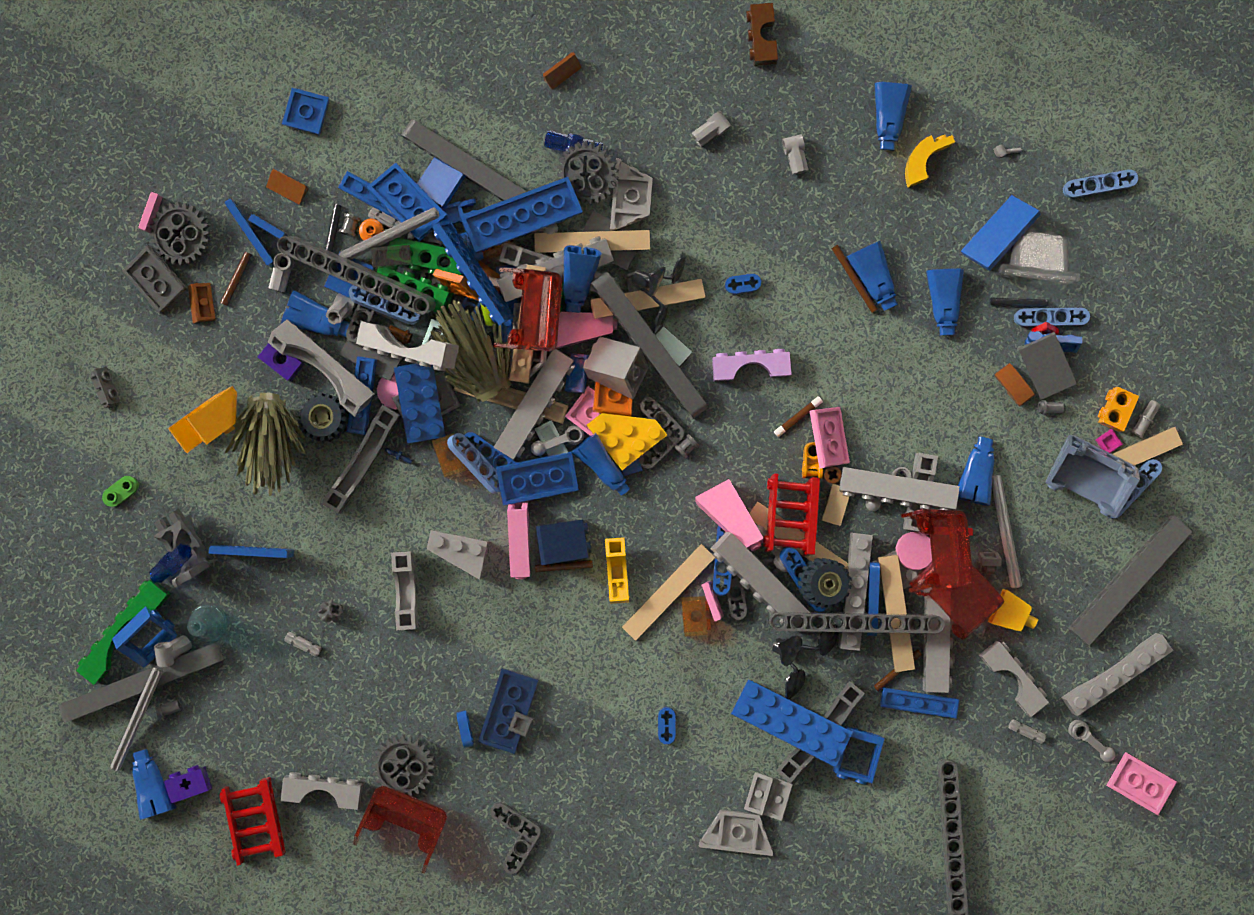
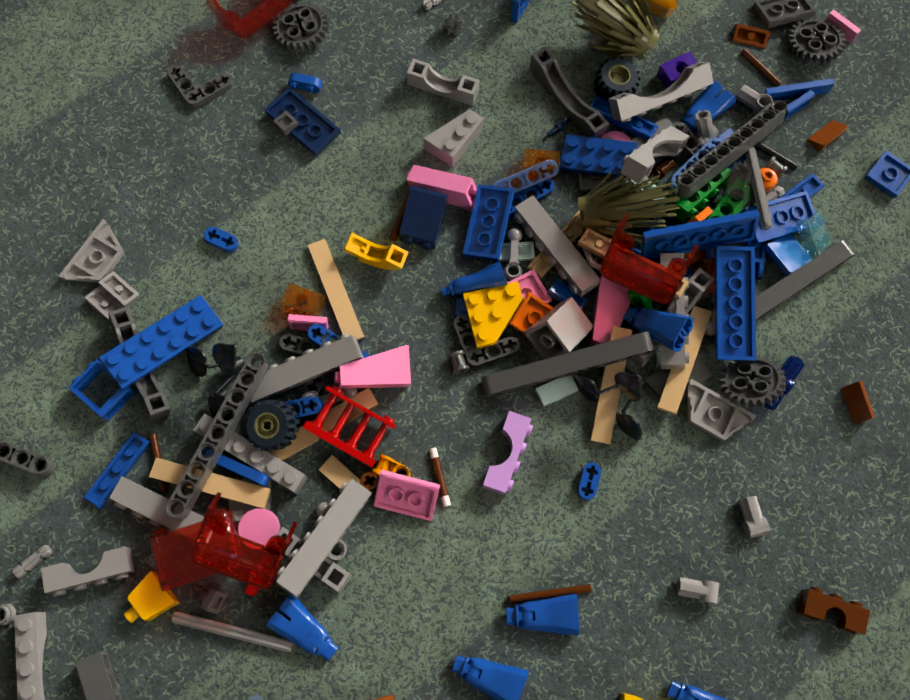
camera: 110 degrees right, 15 degrees down
(410, 163) = (819, 237): none -> clear light blue hinge

